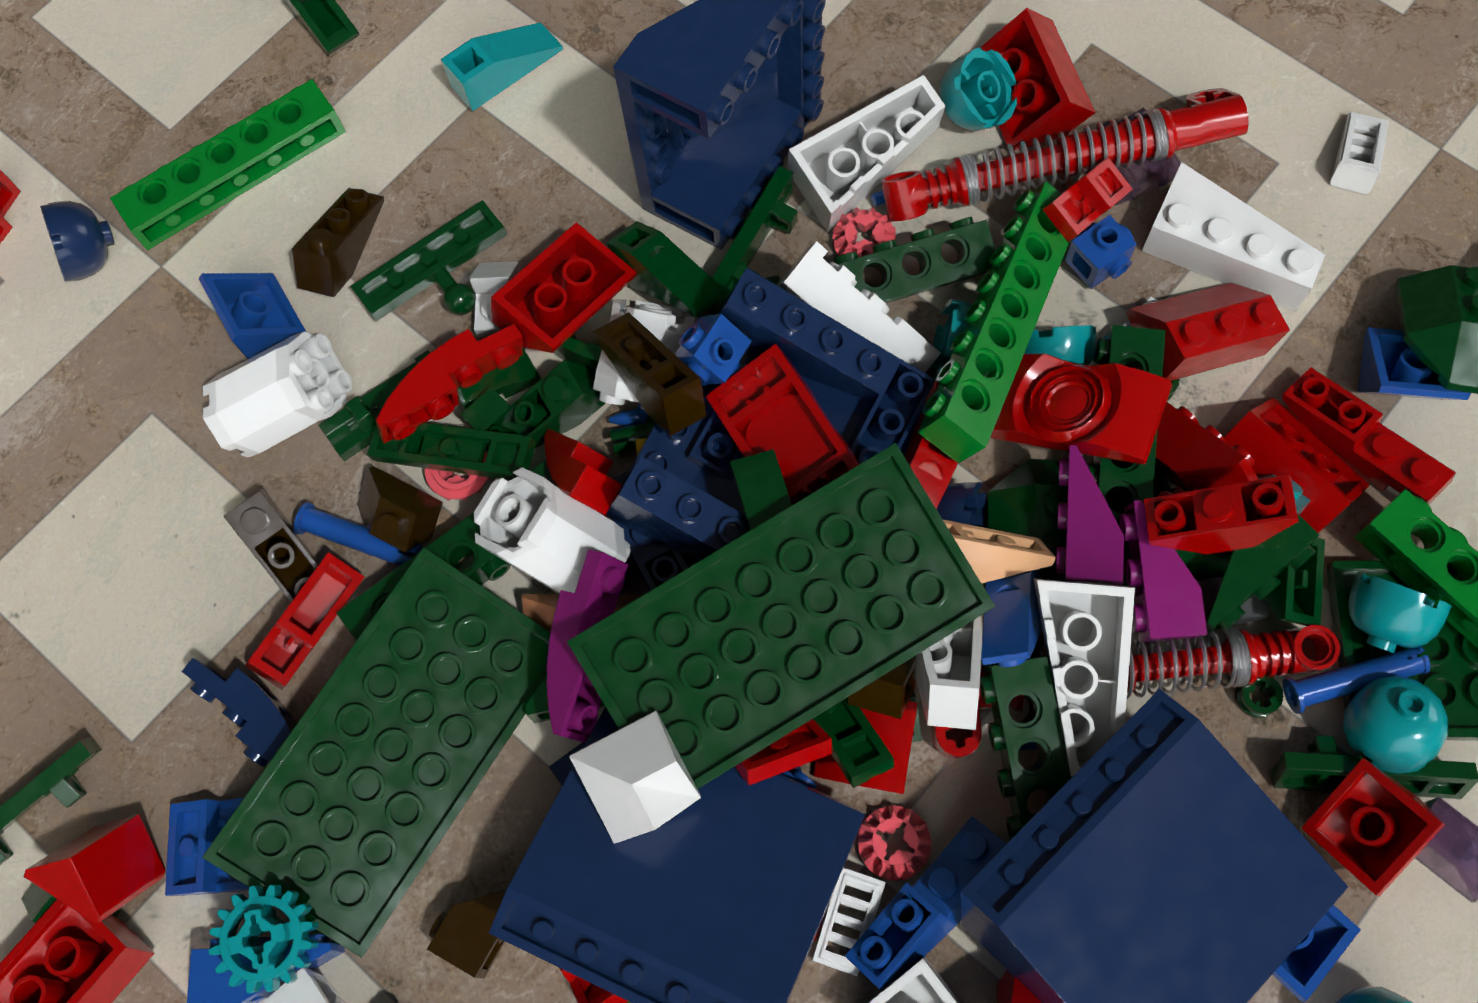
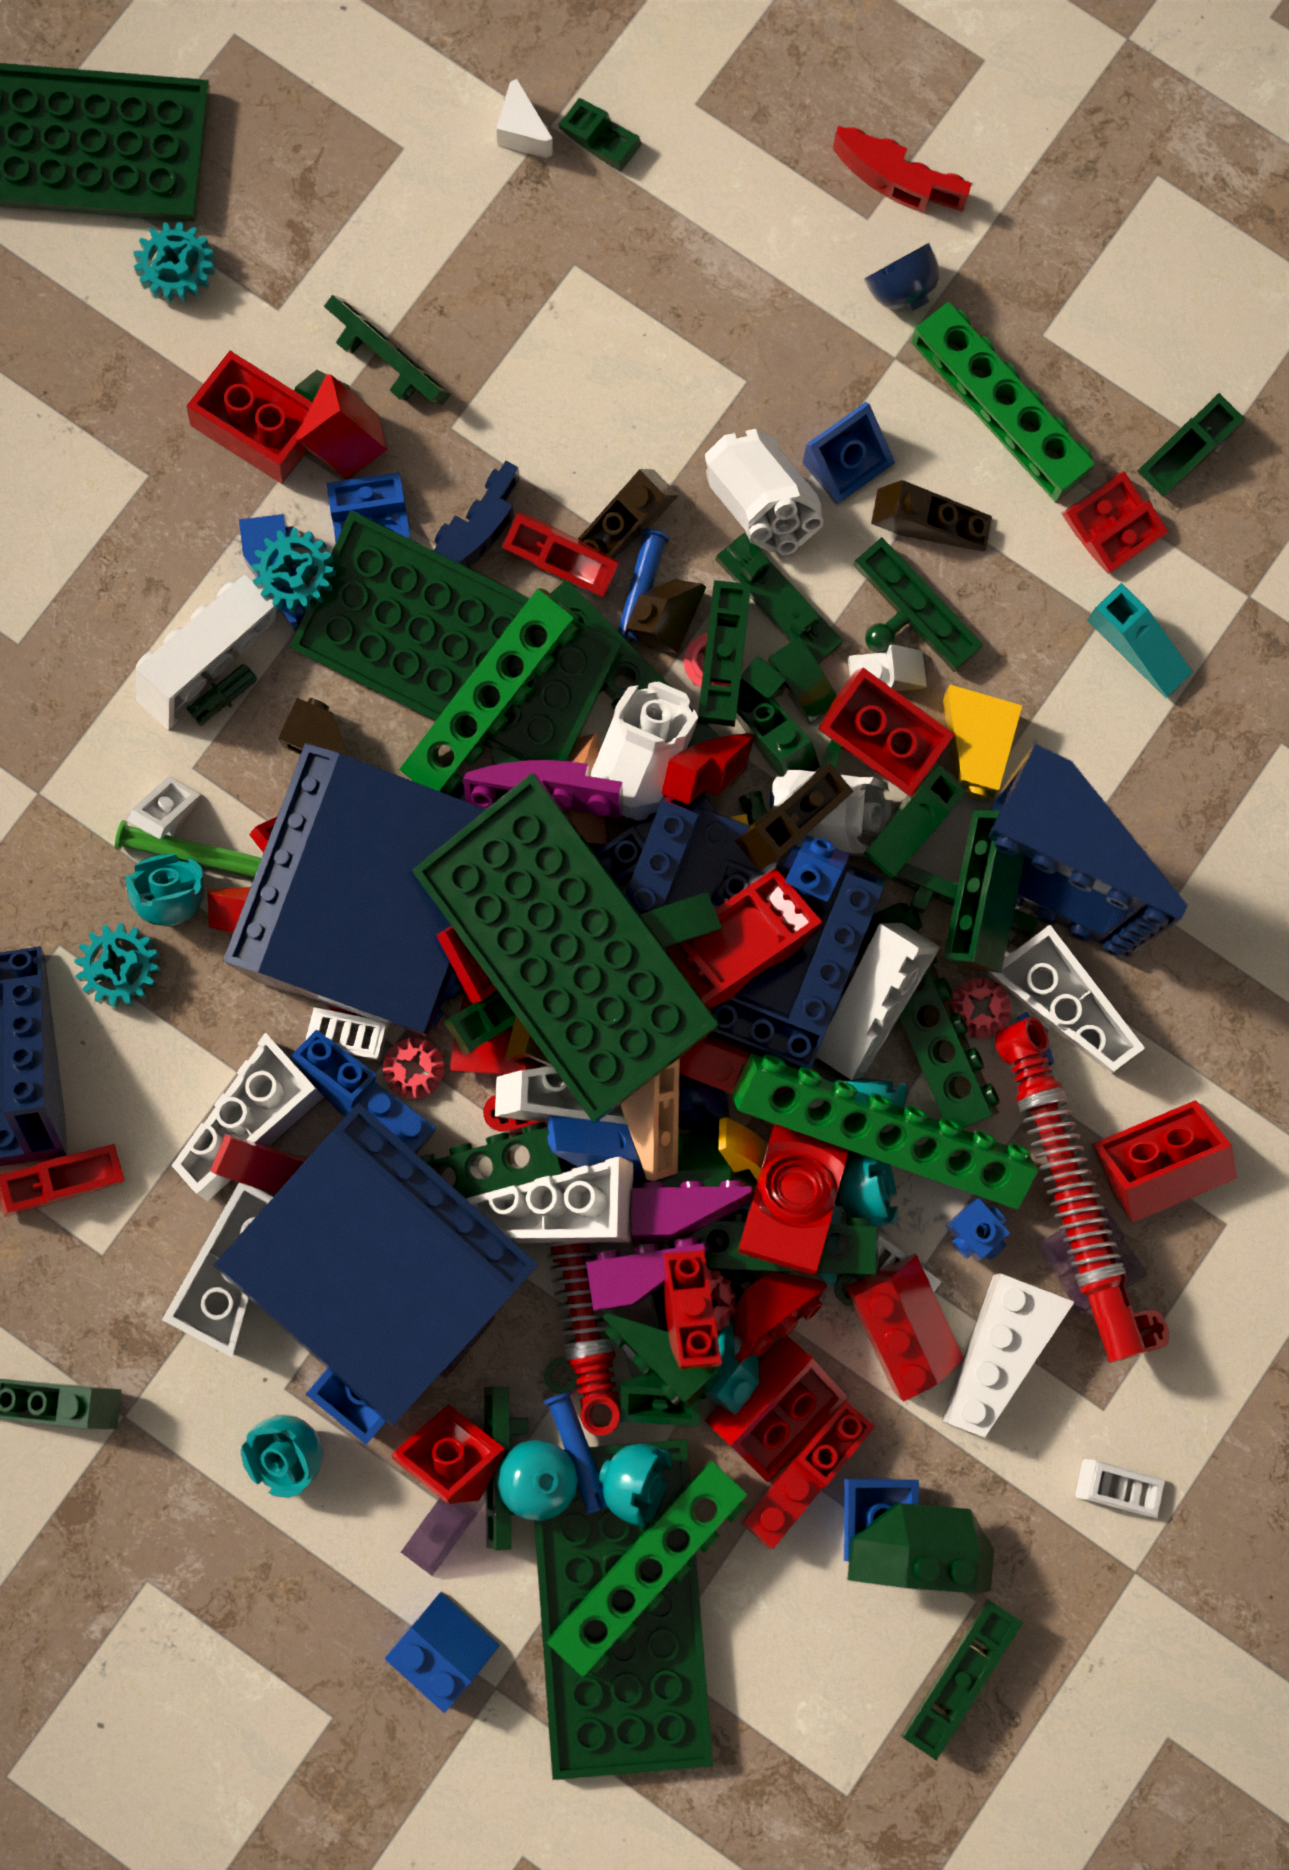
camera: 70 degrees right, 10 degrees up
(368, 629) = (424, 763): none -> green brick
(376, 78) = (1114, 522): none -> red slope
(432, 384) = (775, 625): red slope -> none
(581, 198) = (981, 740): none -> yellow slope
(635, 778) = (430, 843): white slope -> none
(749, 199) = (983, 900): none -> dark green brick
(978, 90) = (1141, 1106): teal cylinder -> none
(1014, 467) = (741, 1147): none -> yellow slope
(1087, 199) = (1021, 1210): red slope -> none

